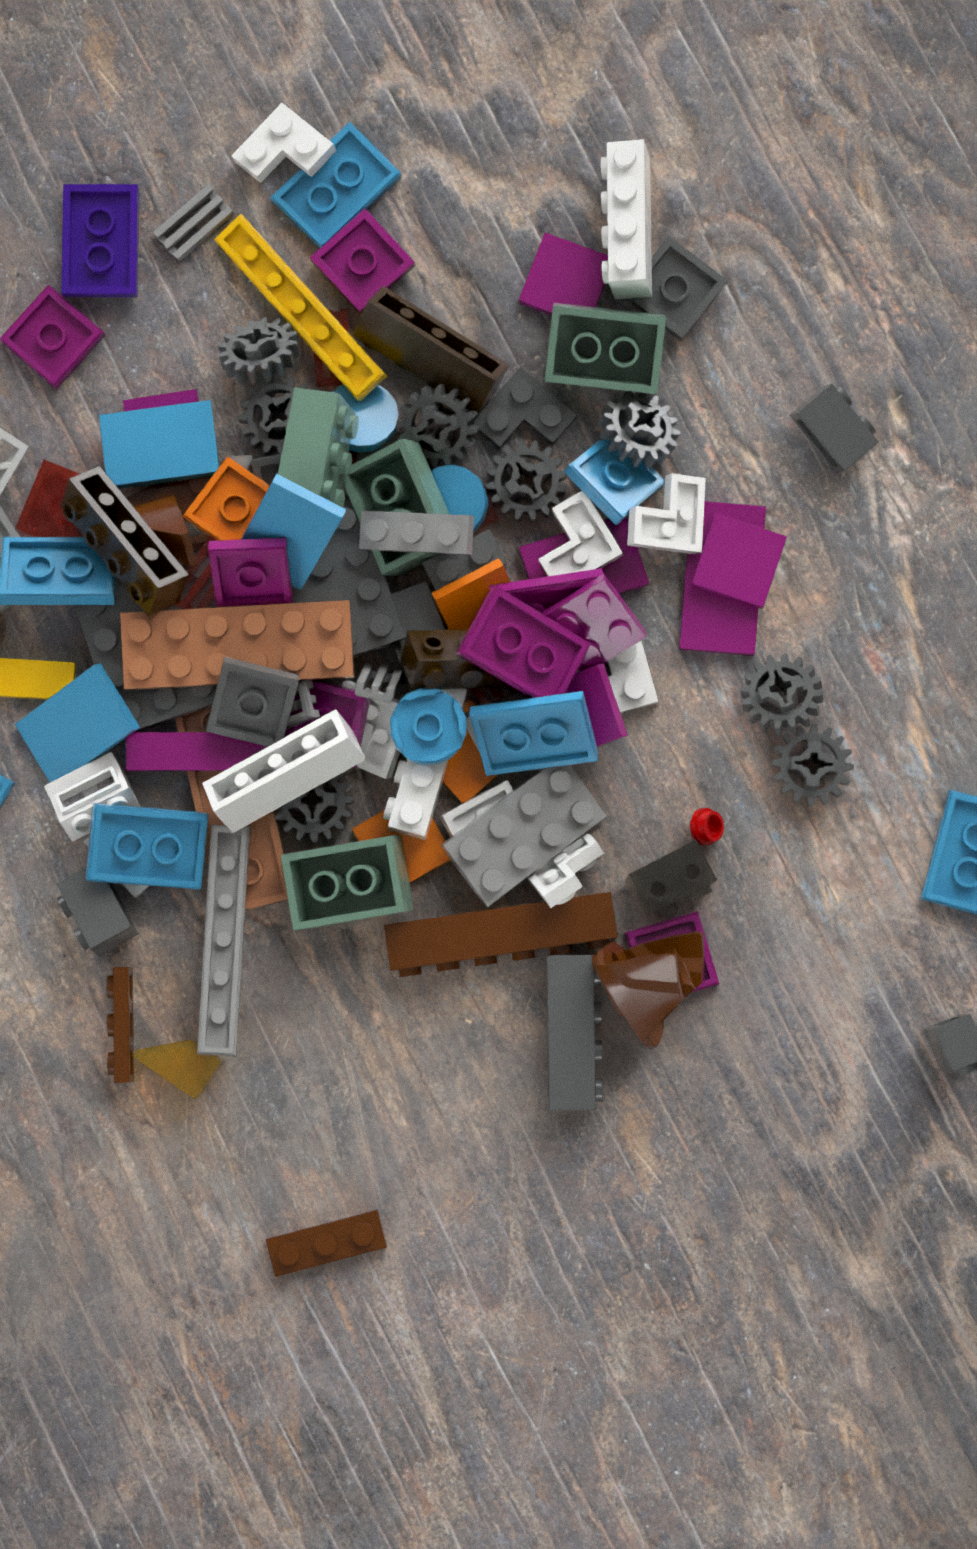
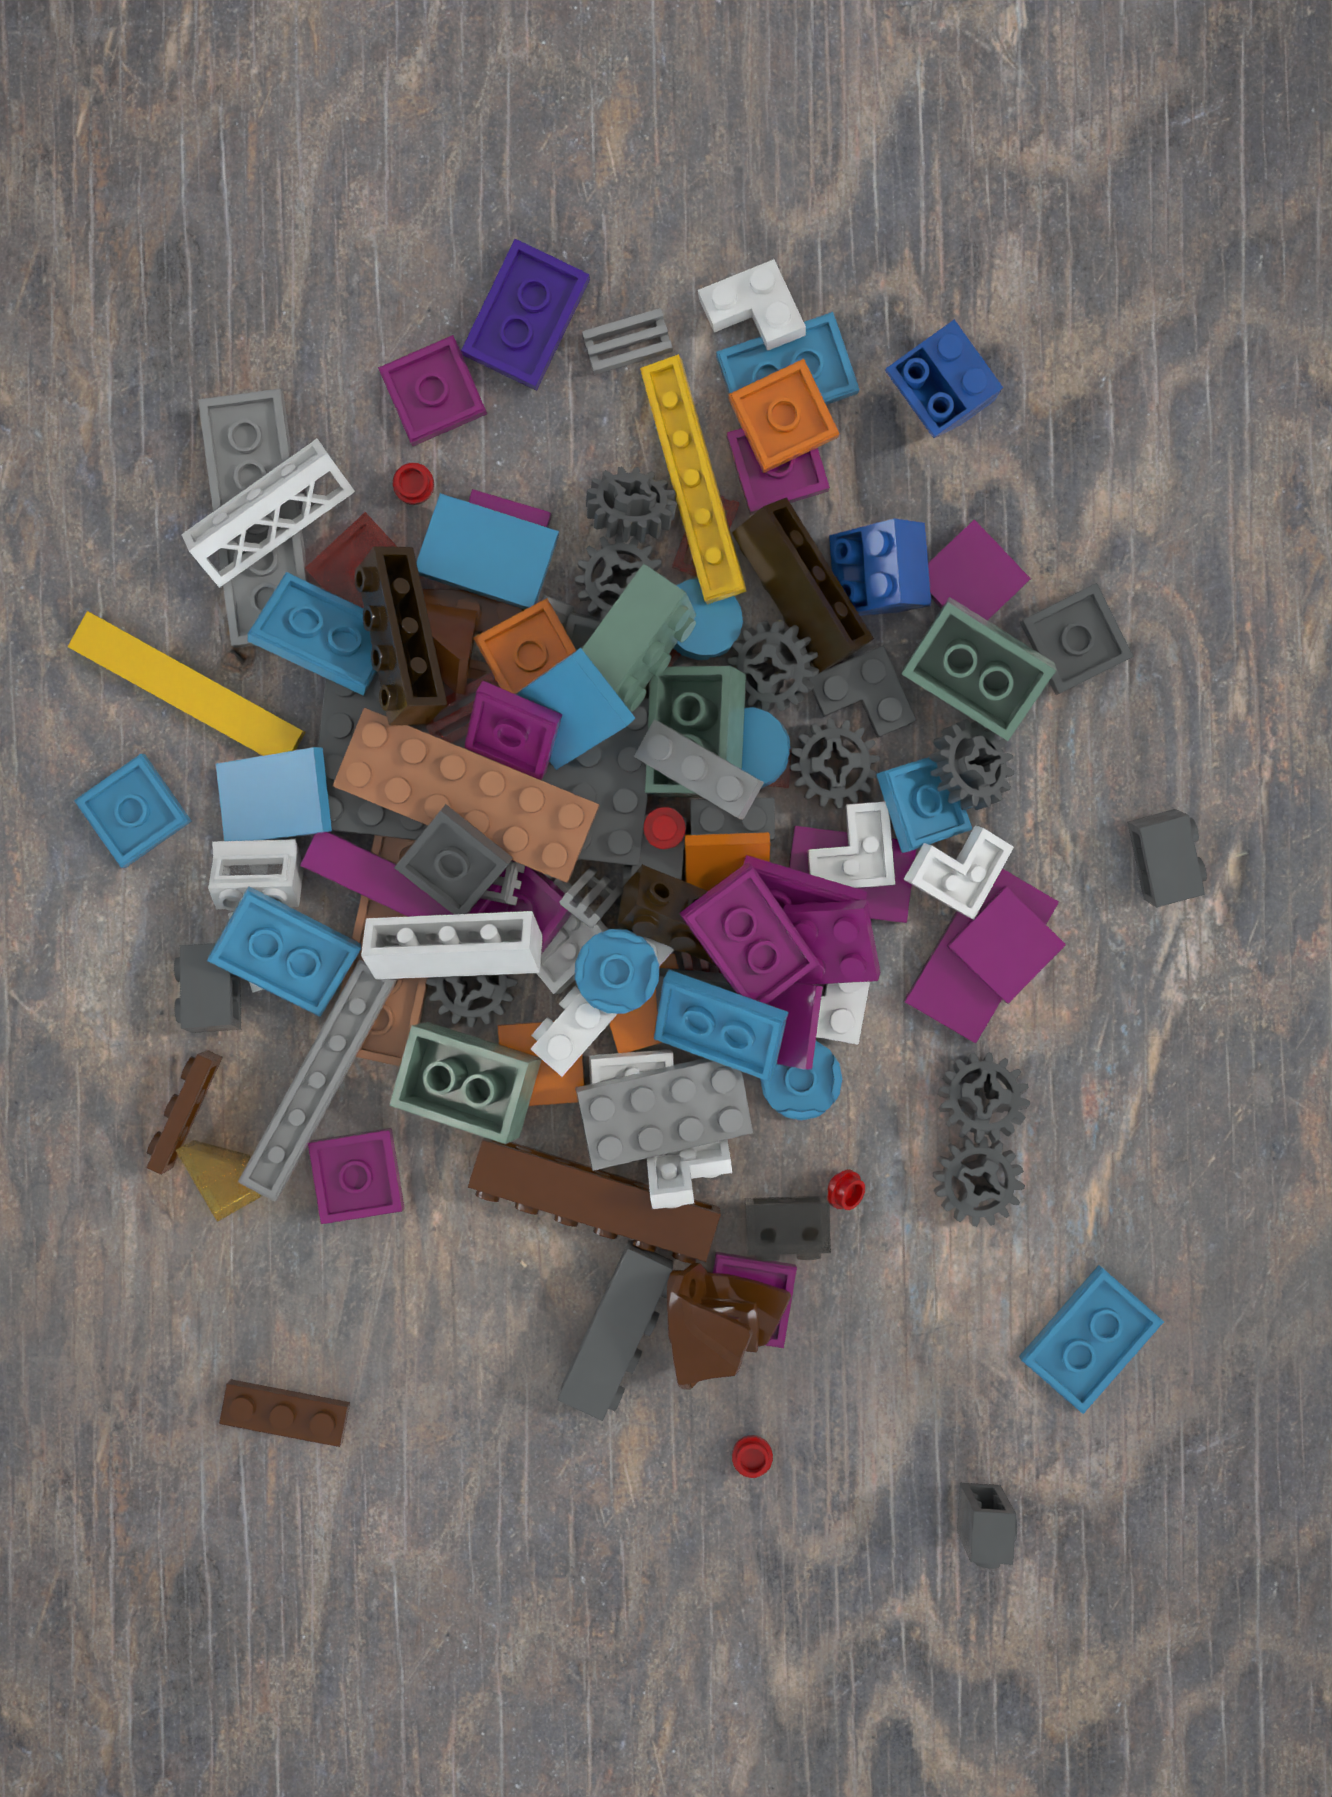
camera: 25 degrees right, 5 degrees up
(71, 419) = (413, 483): none -> red plate
(292, 1010) = (356, 1176): none -> magenta plate
(349, 222) = (783, 415): none -> orange tile
(411, 596) = (664, 828): none -> red plate
(466, 133) = (945, 380): none -> blue slope
(489, 304) = (883, 566): none -> blue slope
(629, 219) = (1066, 547): white brick -> none
(629, 760) = (805, 1092): none -> dark azure tile
(737, 1088) = (752, 1456): none -> red plate

